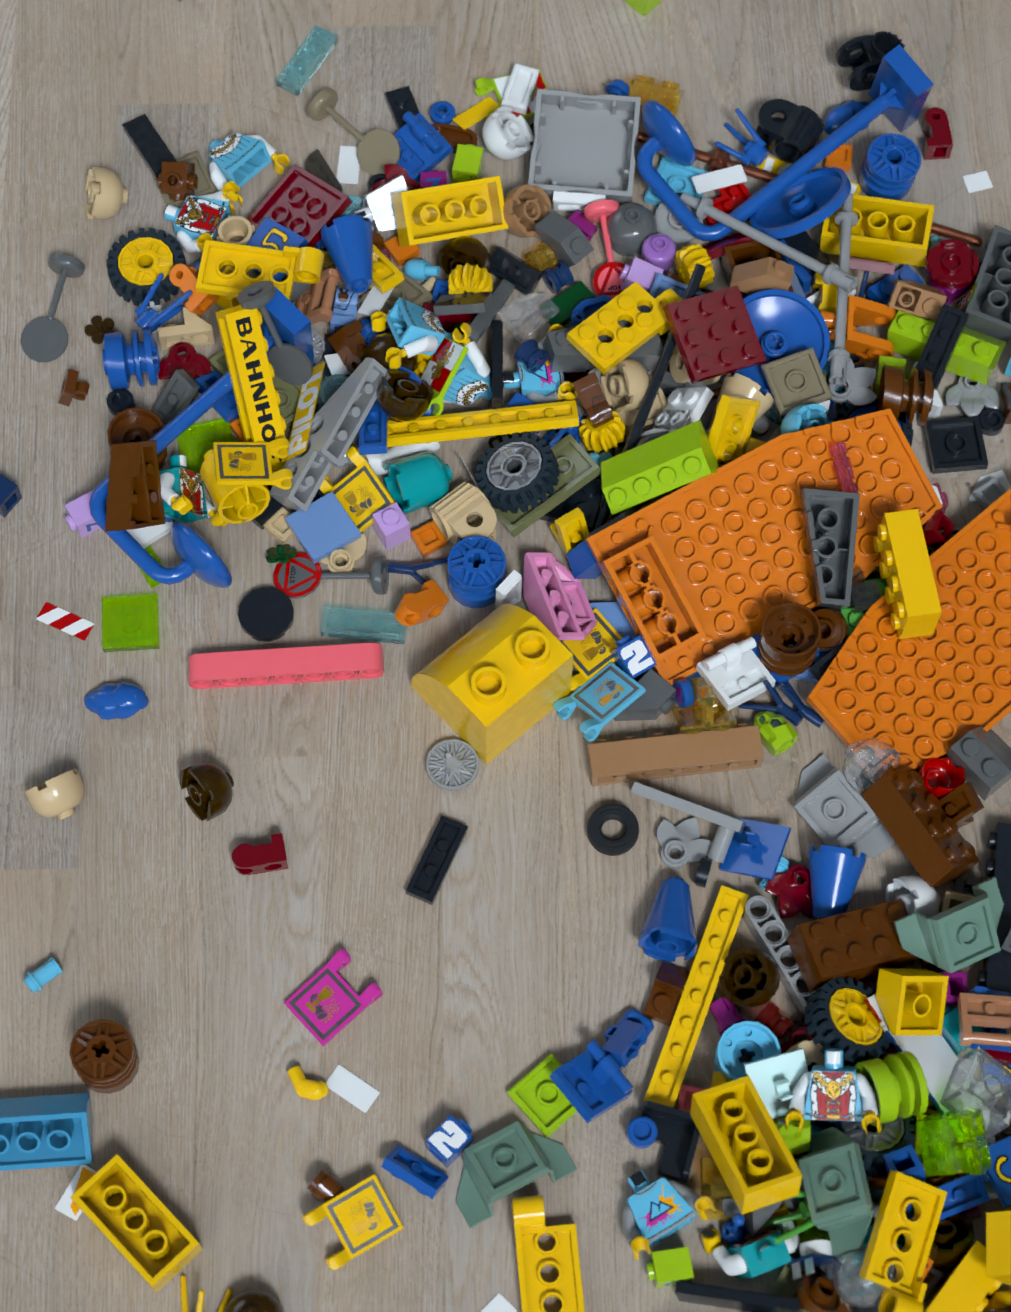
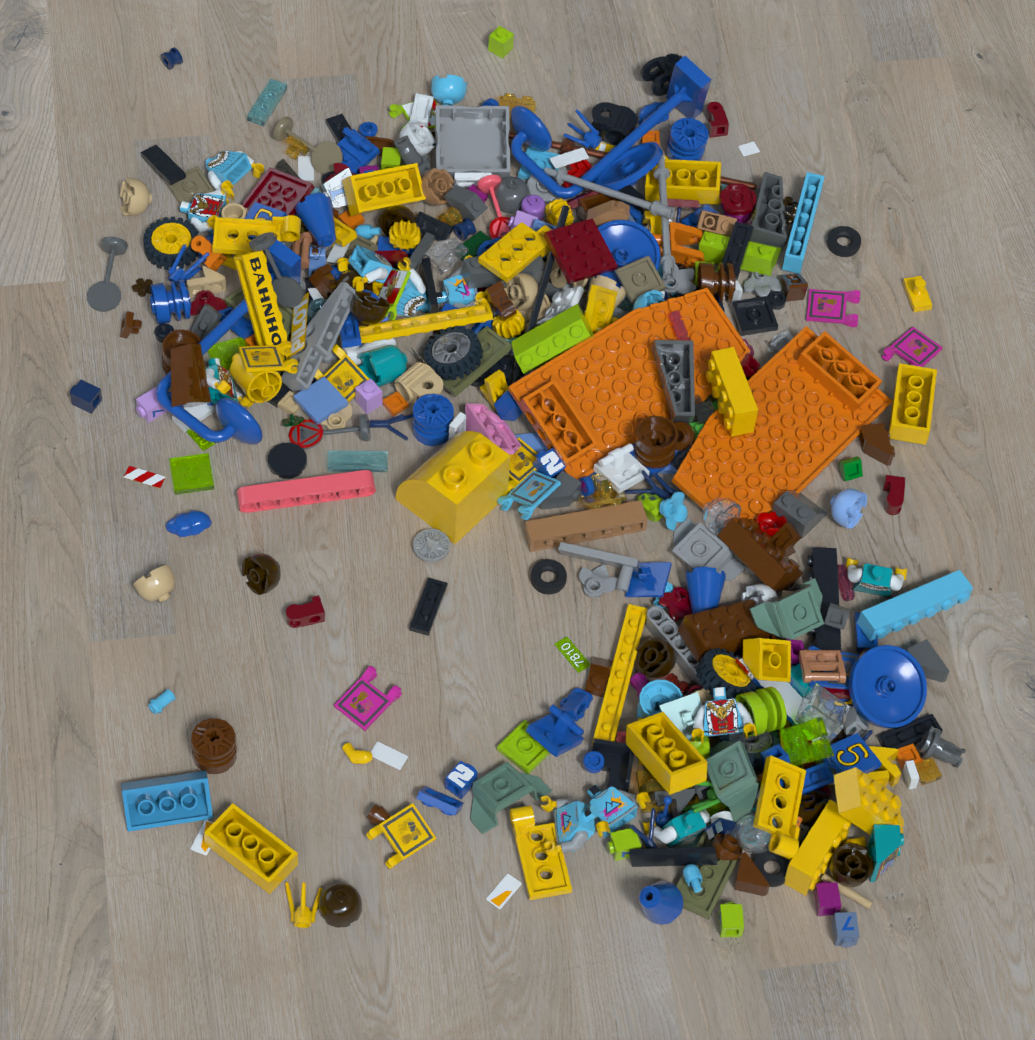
camera: 10 degrees left, 10 degrees down
(178, 180) = (181, 184): reddish brown brick -> none
(337, 134) = (296, 147): none -> clear yellow tile
(421, 606) = (396, 444): orange leg -> none
(463, 303) = (401, 247): dark grey tile -> none
(476, 113) = (392, 128): yellow sticker -> none
(495, 161) = (410, 154): none -> dark grey piece
(531, 355) = (453, 277): dark blue wheel -> none
(561, 62) = (448, 90): none -> medium azure cylinder
(599, 1233) = (572, 823): none -> torso
(633, 956) = (572, 654): none -> clear neon green sticker
(670, 923) = (596, 631): blue cone -> none
(703, 872) = (614, 597): black tile -> none
(706, 1266) = (648, 841): none -> dark blue plant
(804, 744) = (674, 510): none -> medium azure plate

